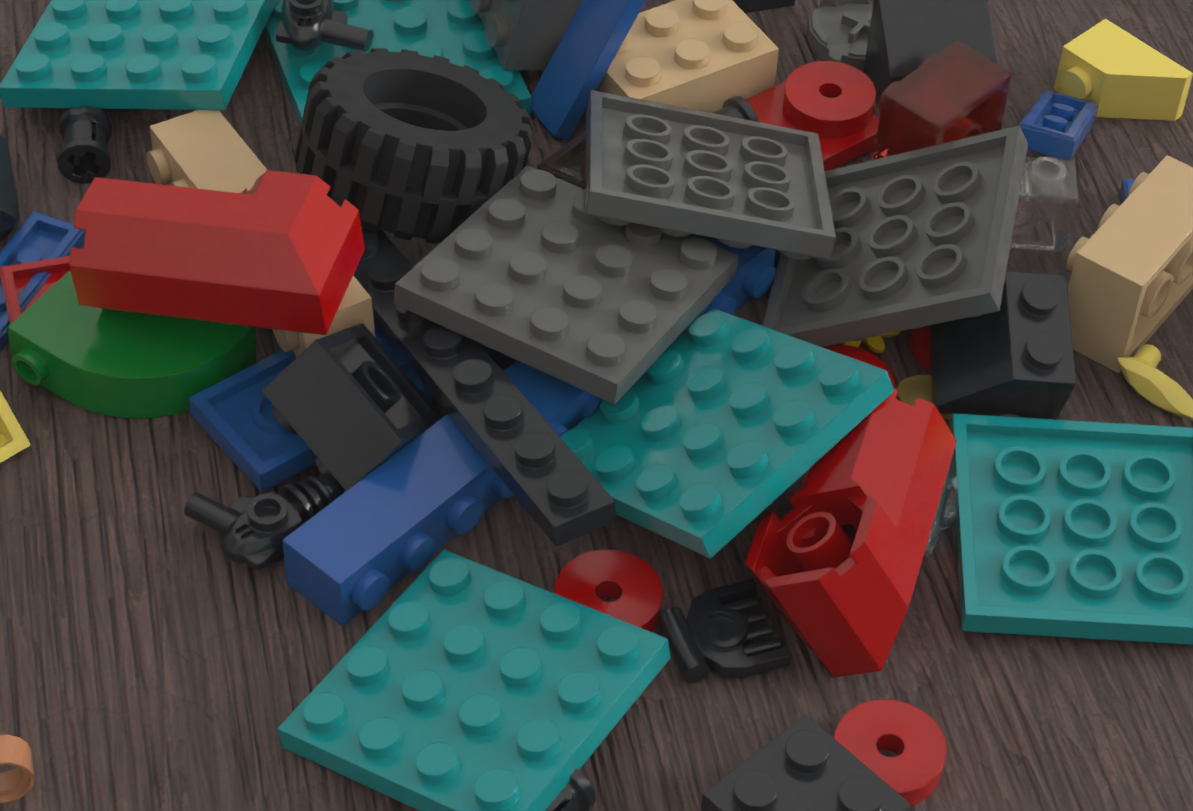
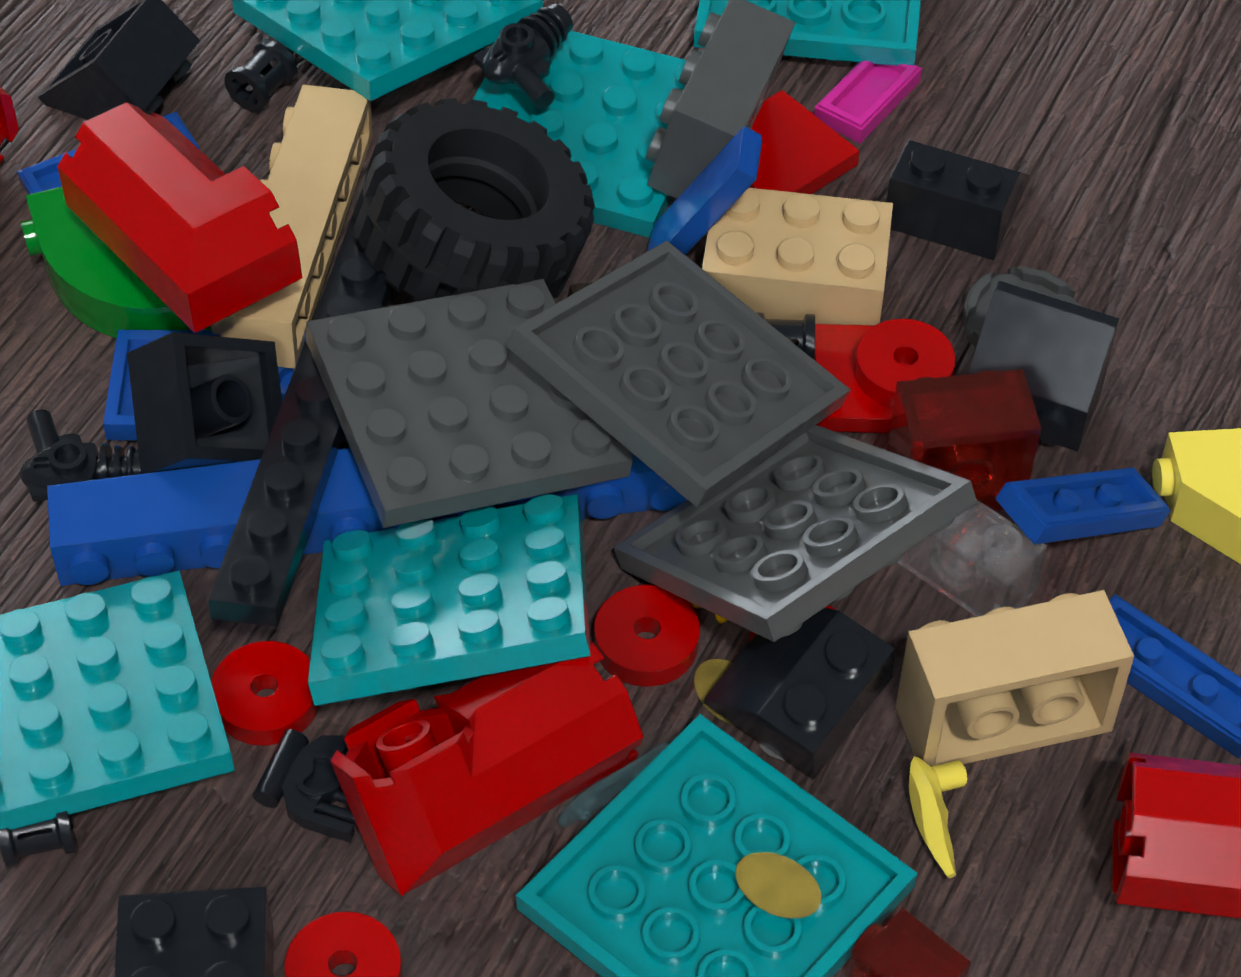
camera: 40 degrees right, 5 degrees up
(1131, 492) = (778, 885): none -> clear yellow sticker

